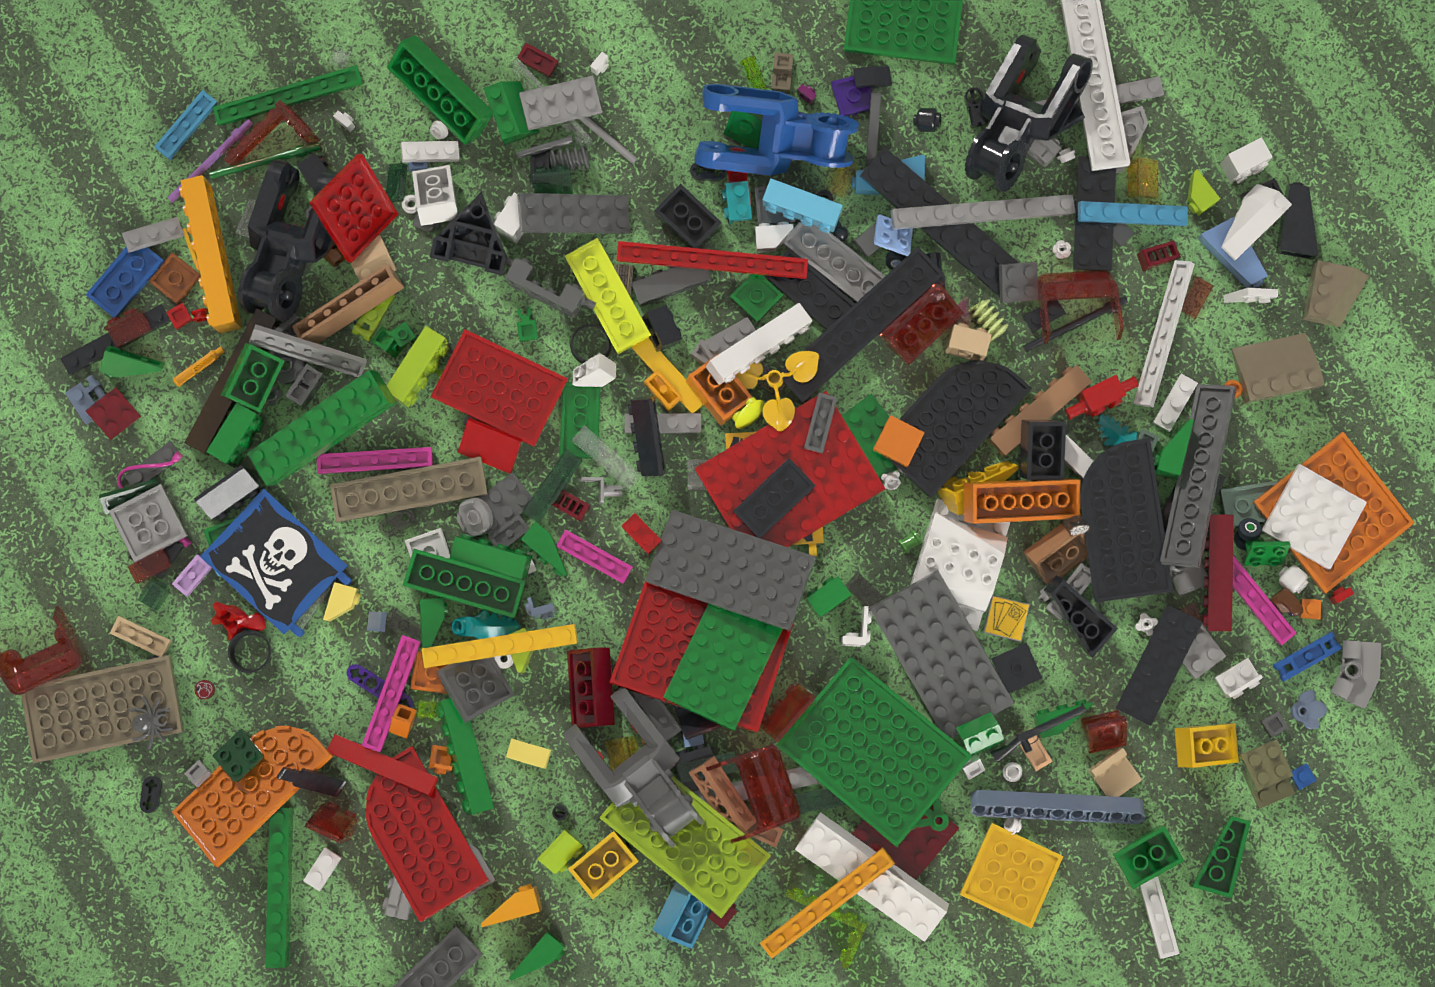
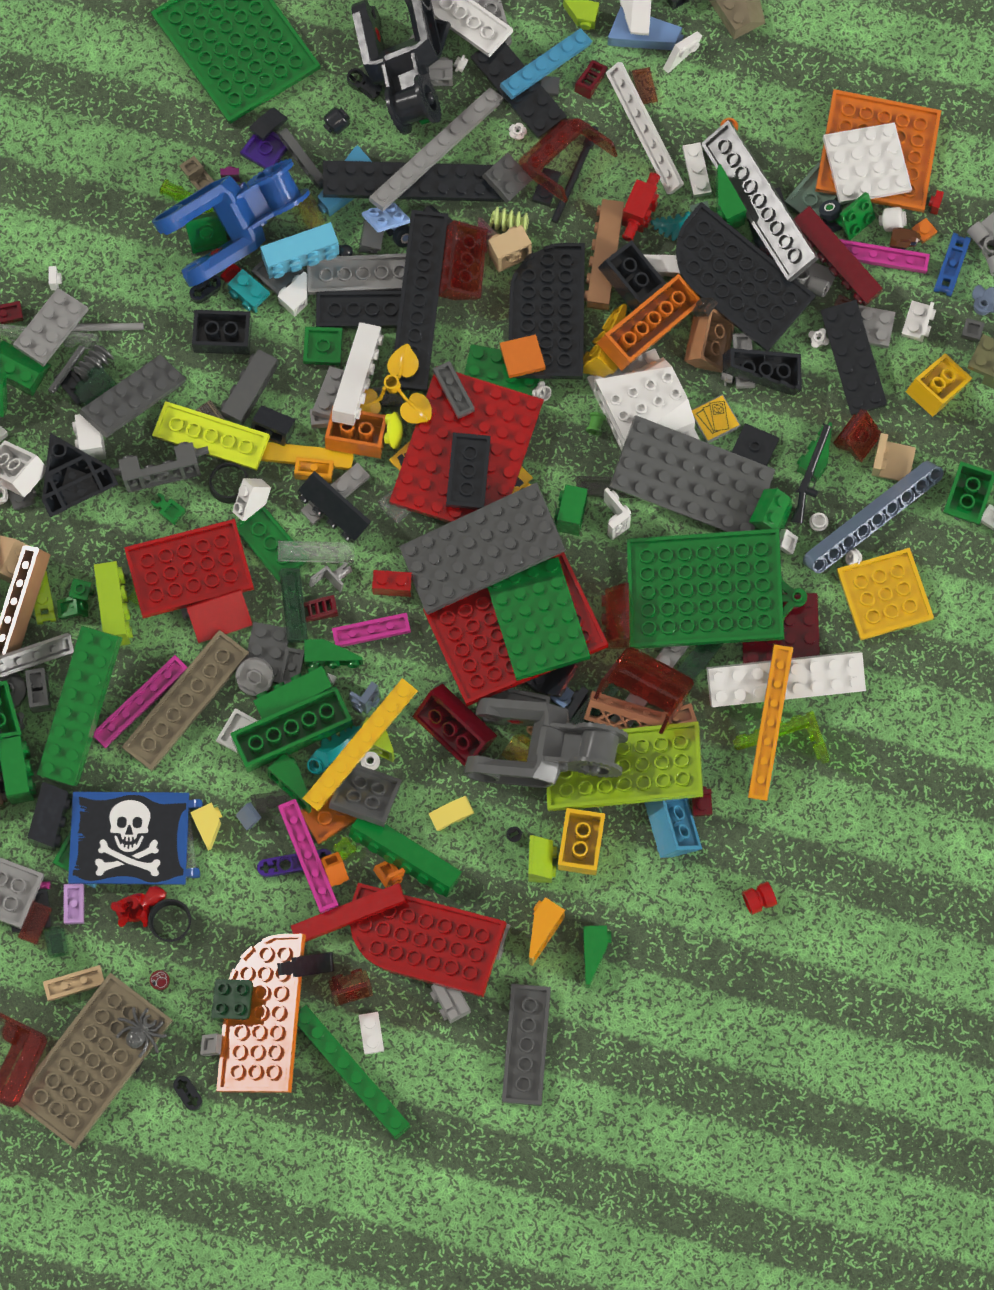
camera: 40 degrees left, 10 degrees down
(397, 523) = (198, 732): clear smoke plate -> none
(712, 260) = (267, 344): red plate -> none
(1038, 756) = (826, 496): light nougat tile -> none
(1143, 178) = (530, 35): clear yellow bracket -> none
(1277, 368) = (747, 86): dark tan slope -> none

